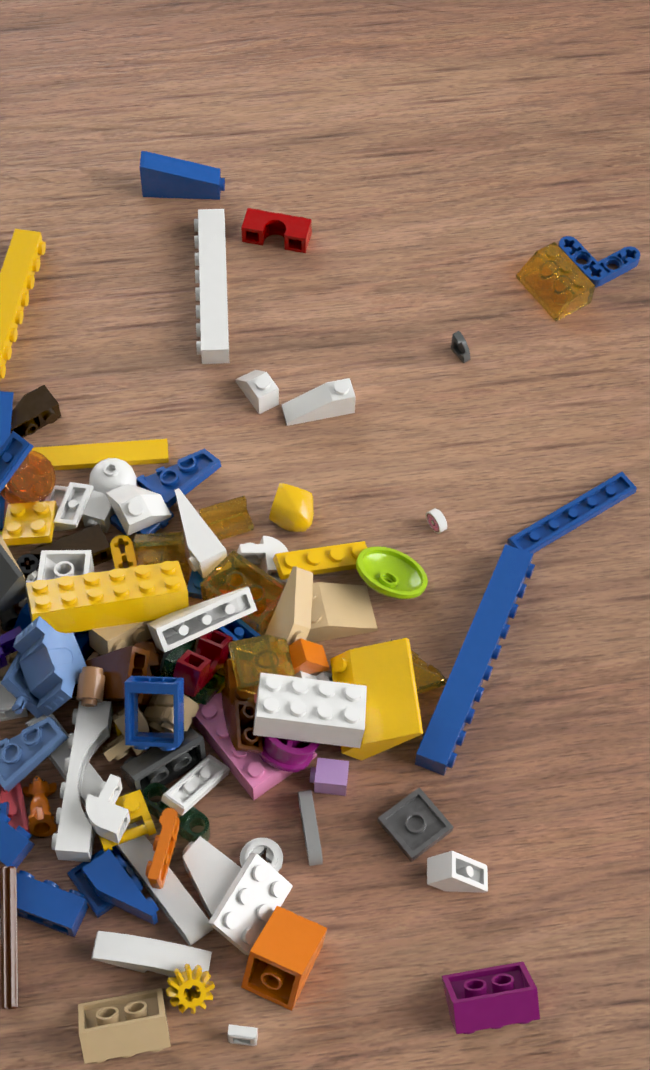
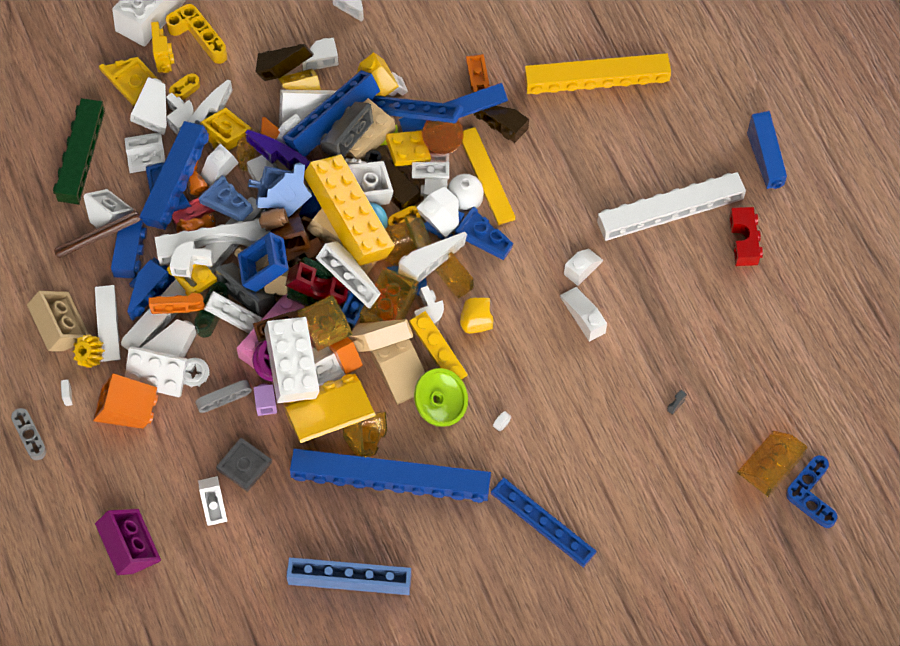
camera: 75 degrees right, 5 degrees up
(603, 733) = (349, 576): none -> medium blue brick

